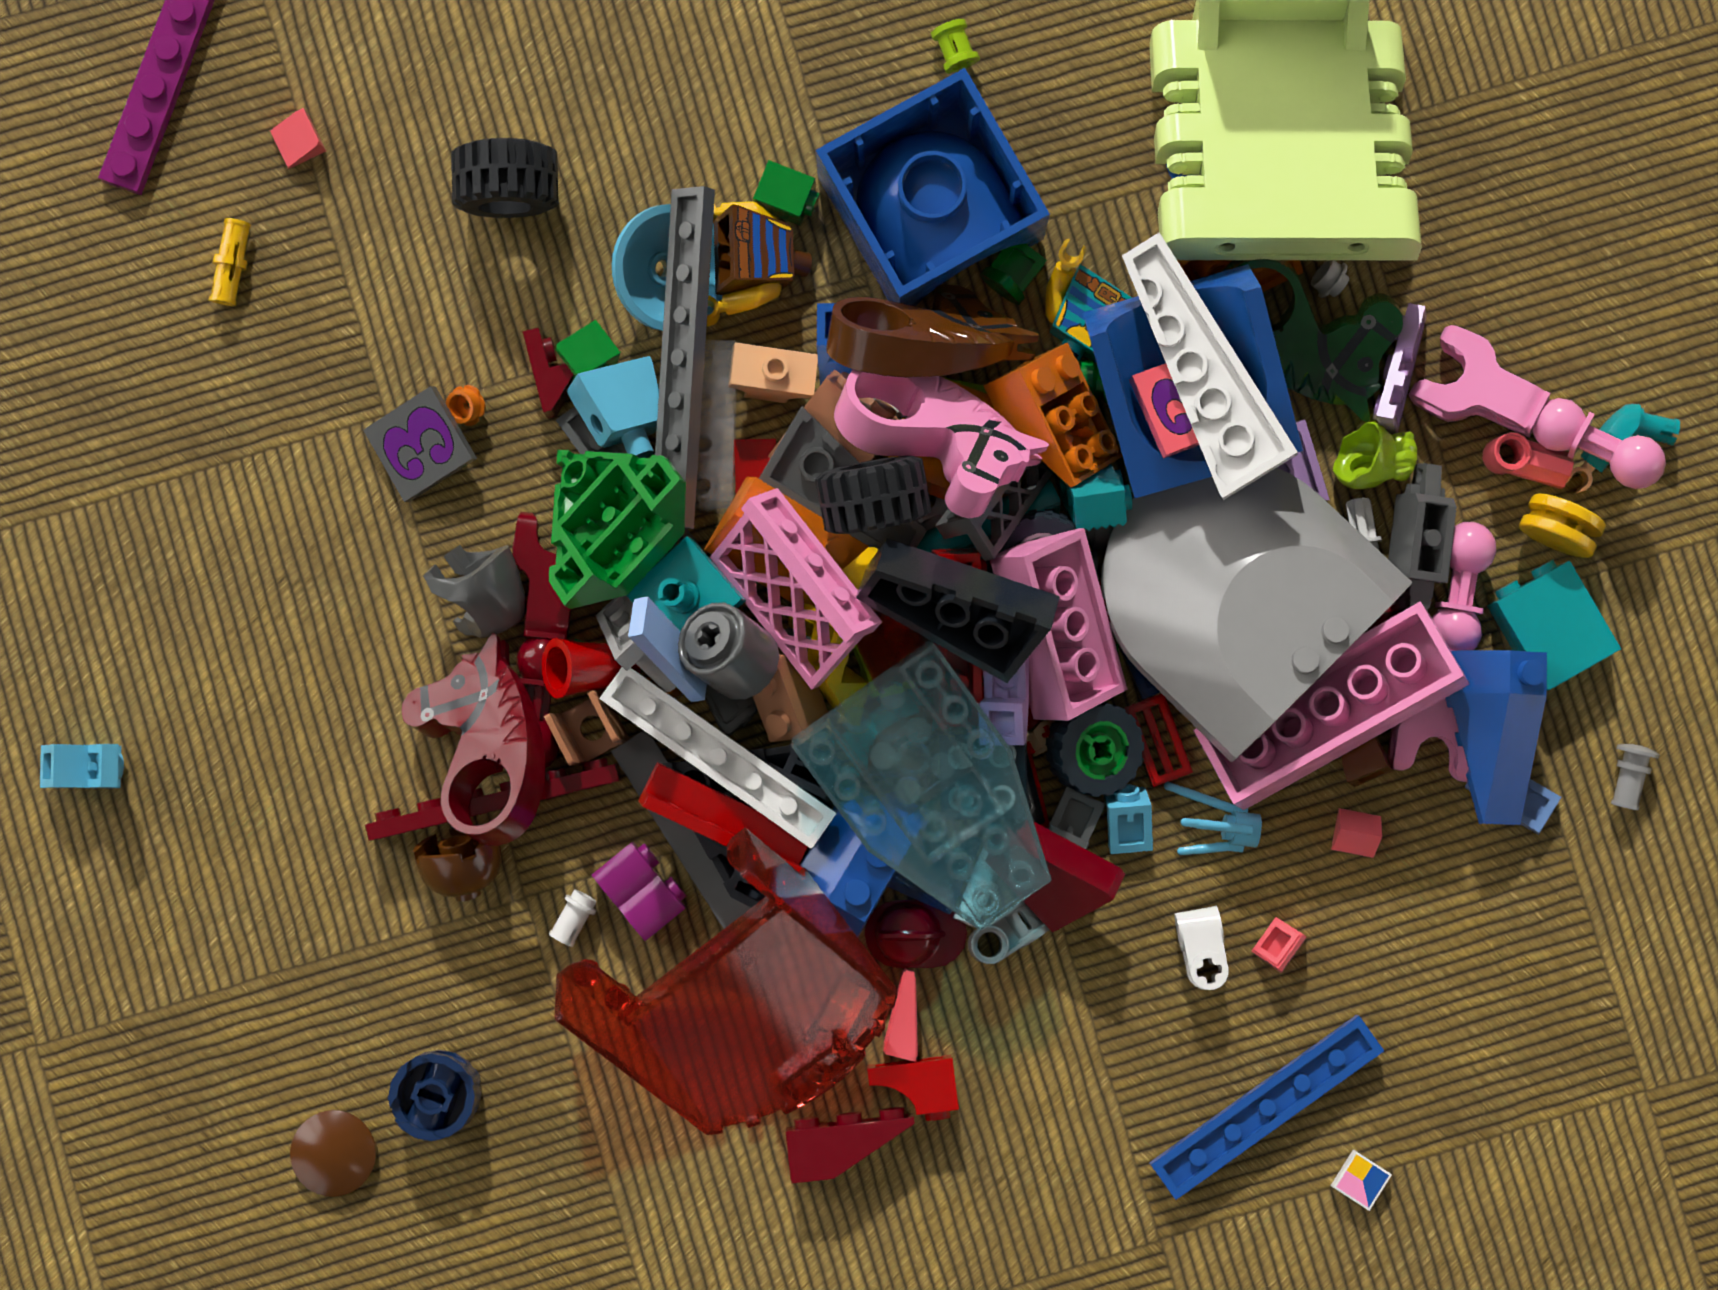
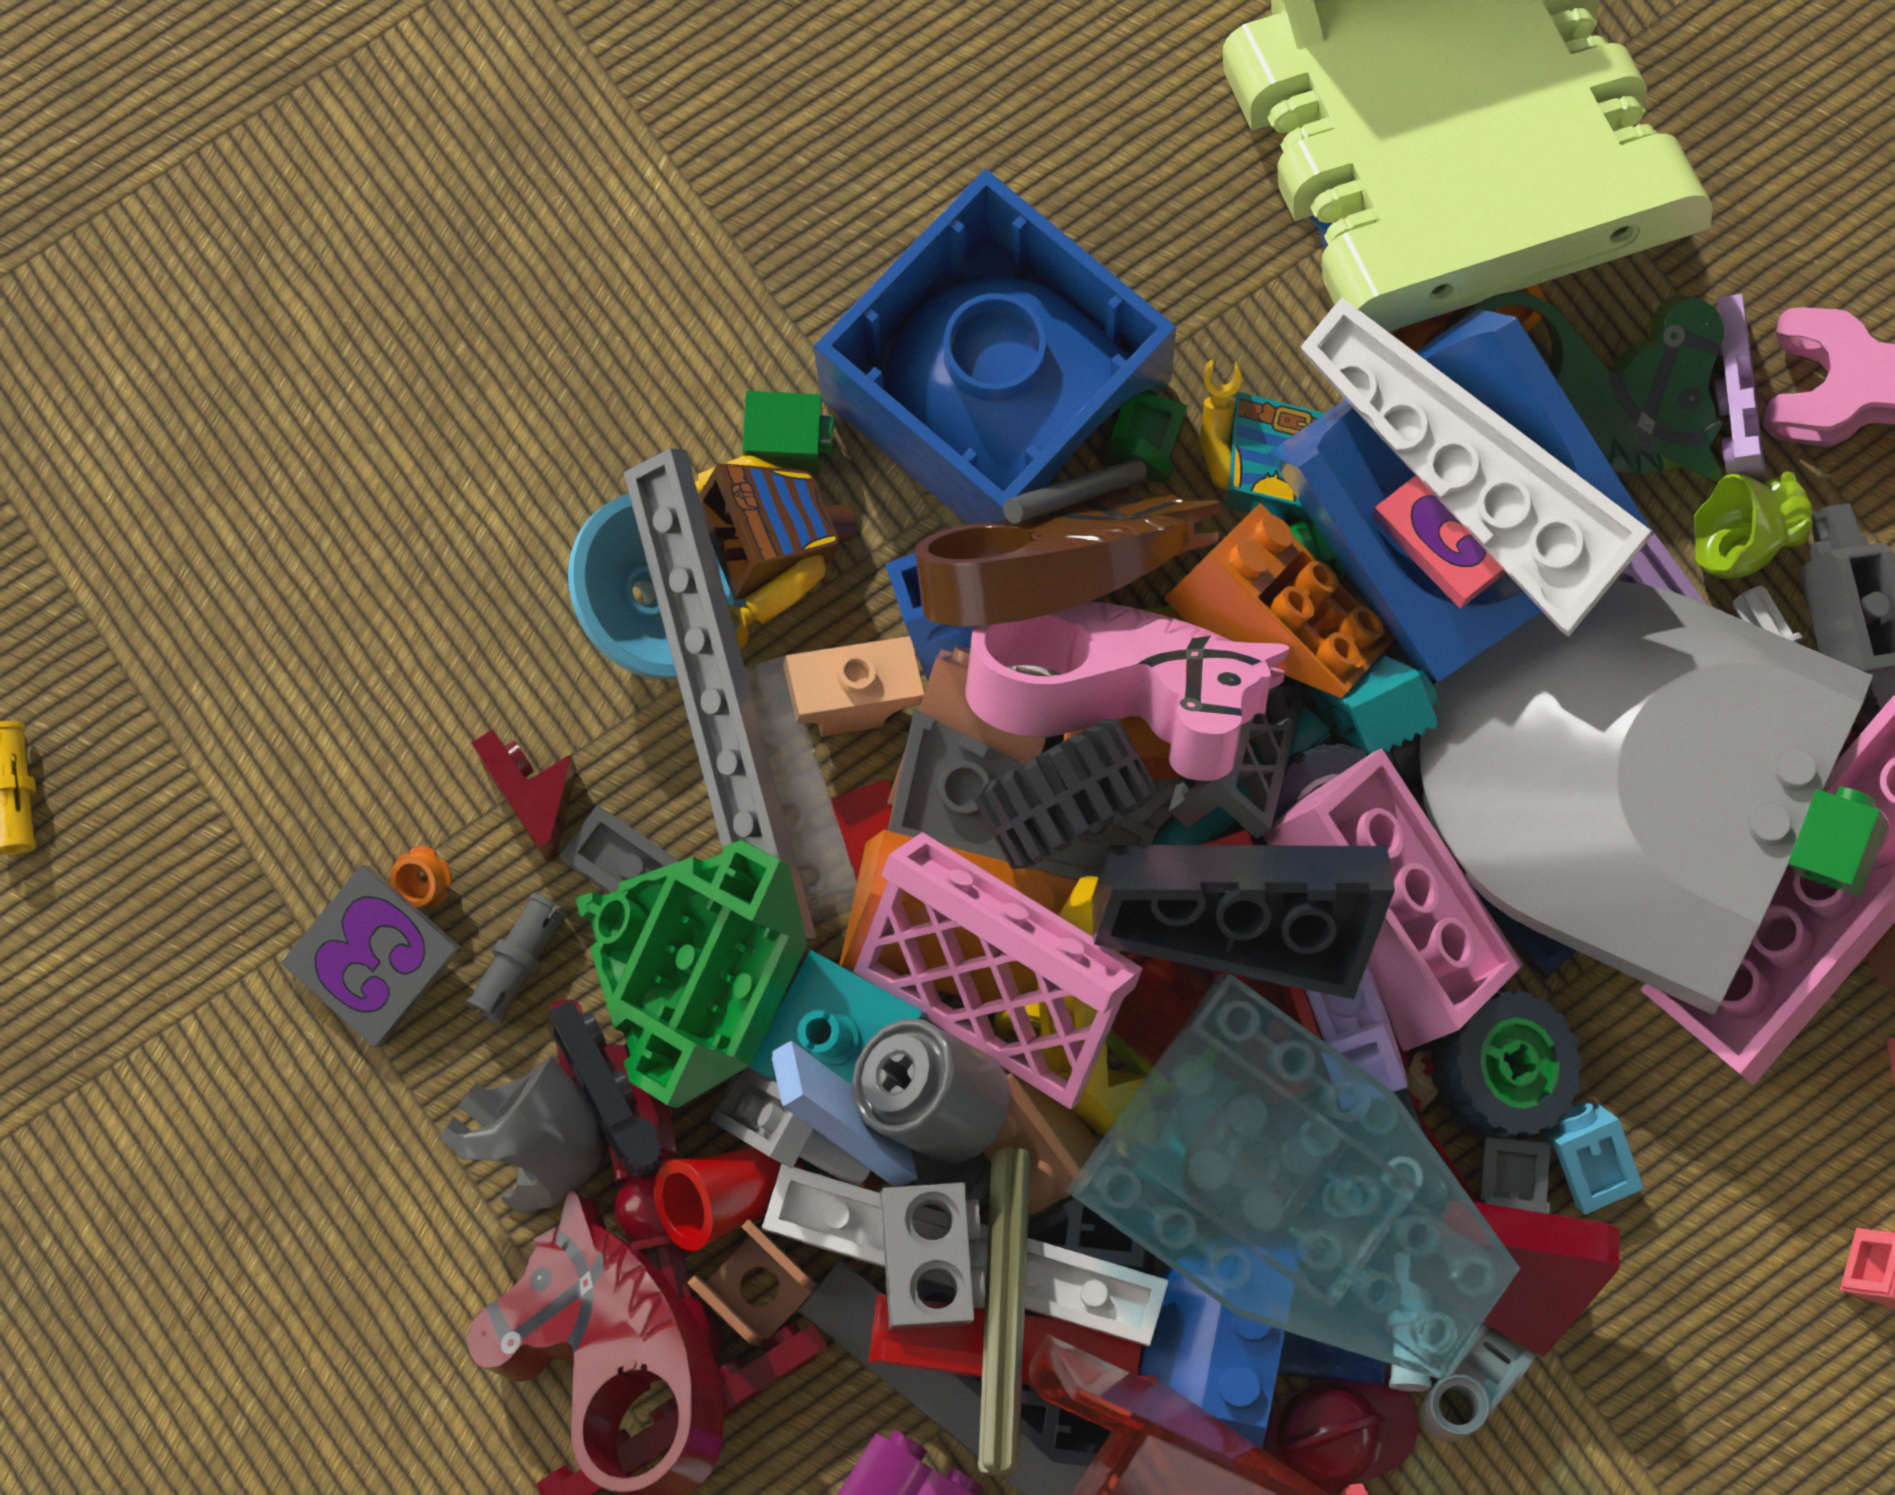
camera: 15 degrees left, 10 degrees down
(297, 139) = (55, 582): coral slope -> none
(504, 178) = (376, 534): black tyre -> none
(509, 475) = (516, 958): none -> dark grey pin
(533, 582) = (605, 1092): none -> black hinge
(588, 349) = (579, 745): green panel -> none
(619, 404) = (645, 799): medium azure torso -> none
(682, 749) = (911, 1256): none -> light grey brick
(727, 801) = (1004, 1312): none -> olive axle
(945, 35) = (947, 137): lime bush -> none
(950, 297) = (1074, 491): none -> dark grey bar
(1170, 774) = (1613, 1016): red tile -> none
(1200, 938) = (1761, 1296): white piece -> none
(1238, 828) = (1752, 1114): medium azure plant -> none
(1330, 278) = (1593, 303): white plate -> none
(1346, 684) = (1839, 840): none -> green brick

